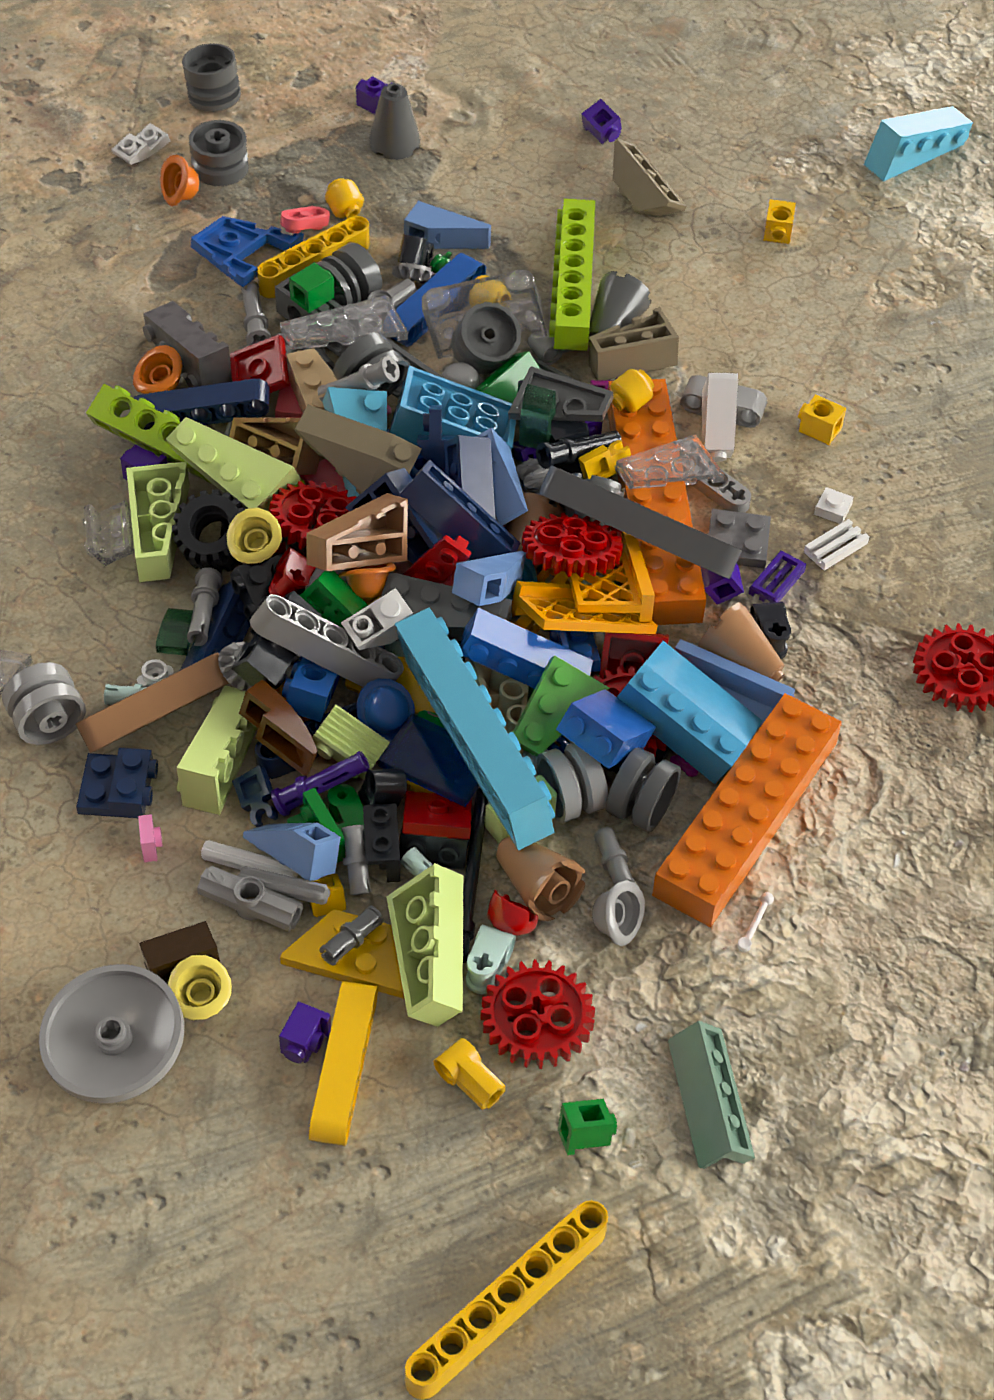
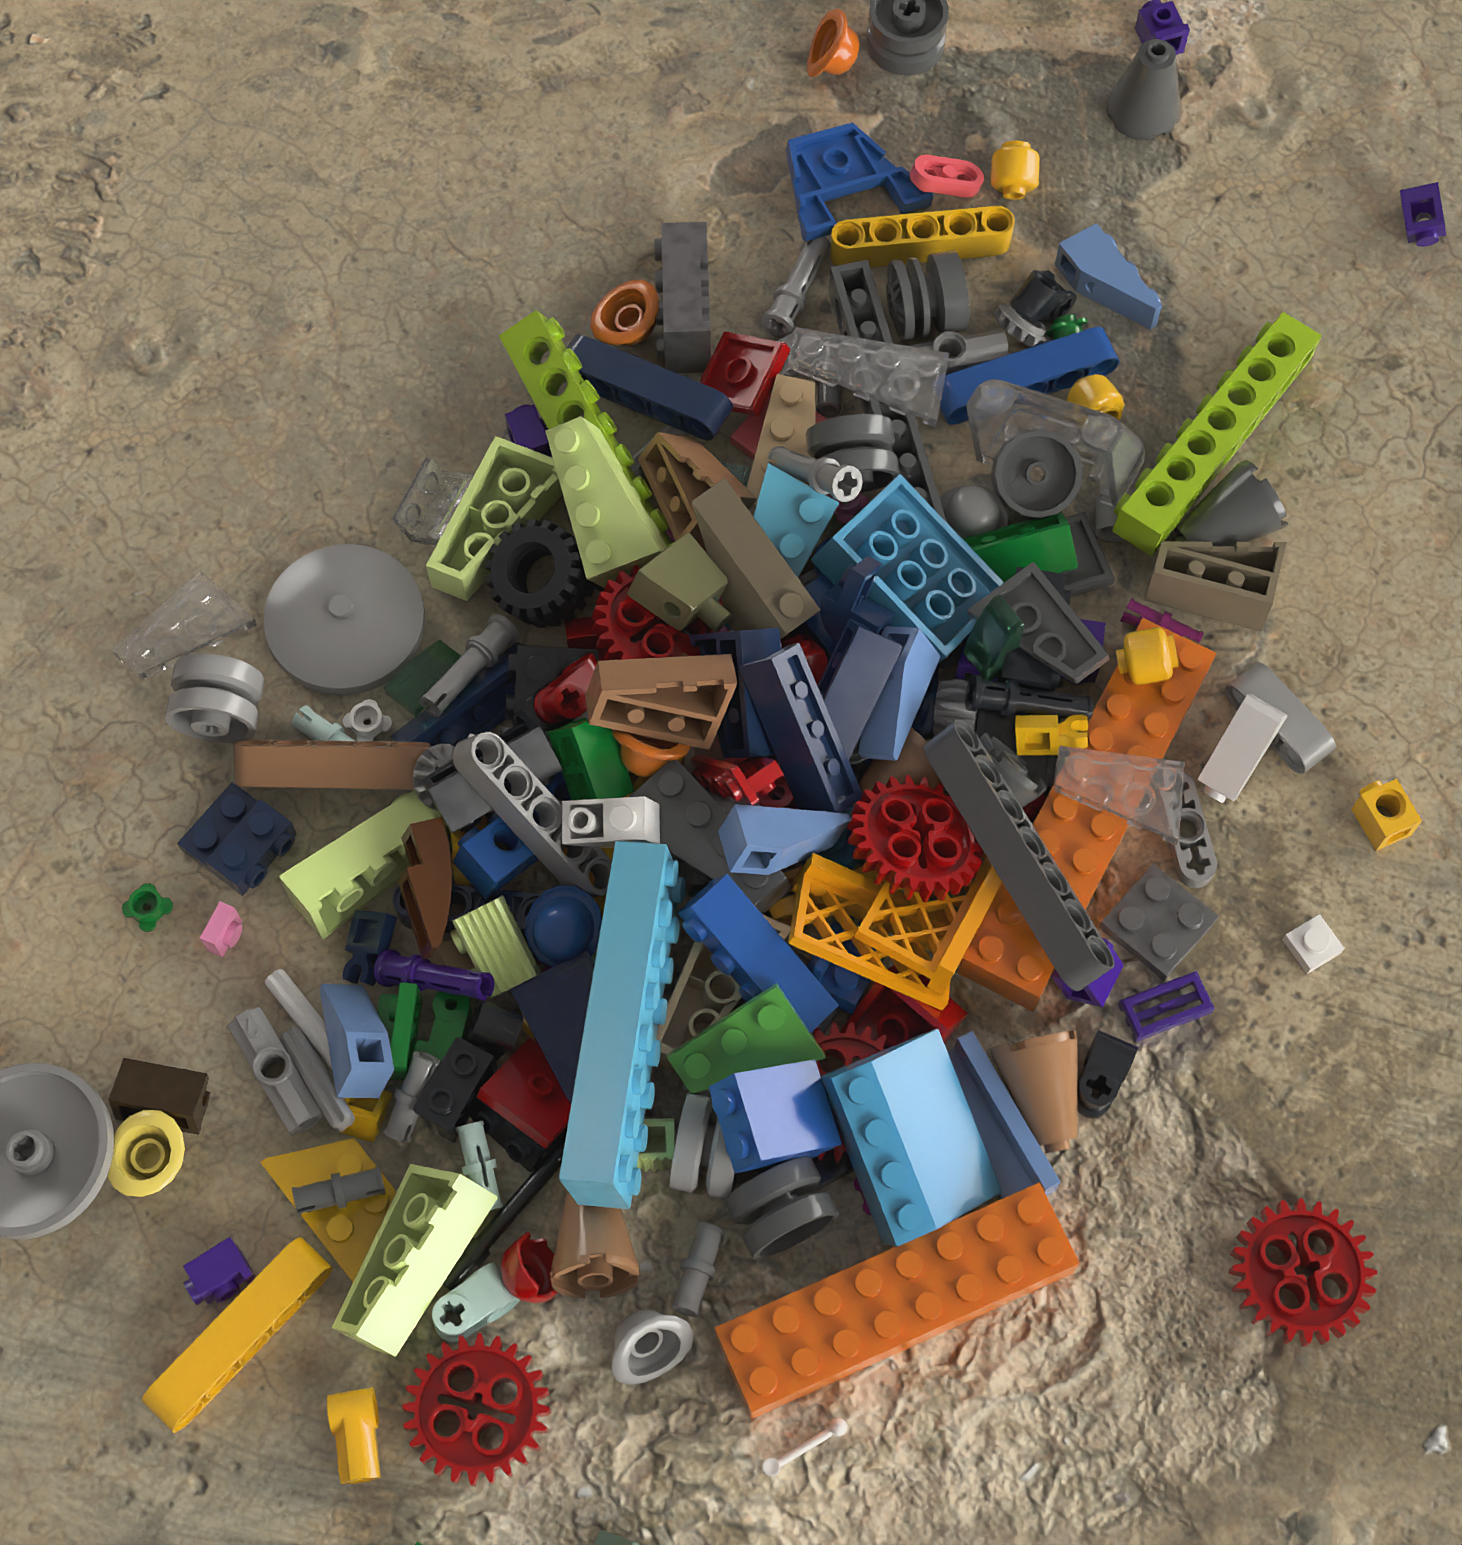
camera: 35 degrees right, 15 degrees up
(82, 847) = (139, 898): none -> green plate
(93, 627) = (344, 619): none -> light grey dish
(253, 536) = (560, 617): light yellow hat -> none
(311, 287) = (866, 296): green brick -> none
(323, 480) = (682, 586): none -> olive torso
(642, 182) = (1412, 337): dark tan wedge -> none
(832, 541) = (1310, 998): white tile -> none

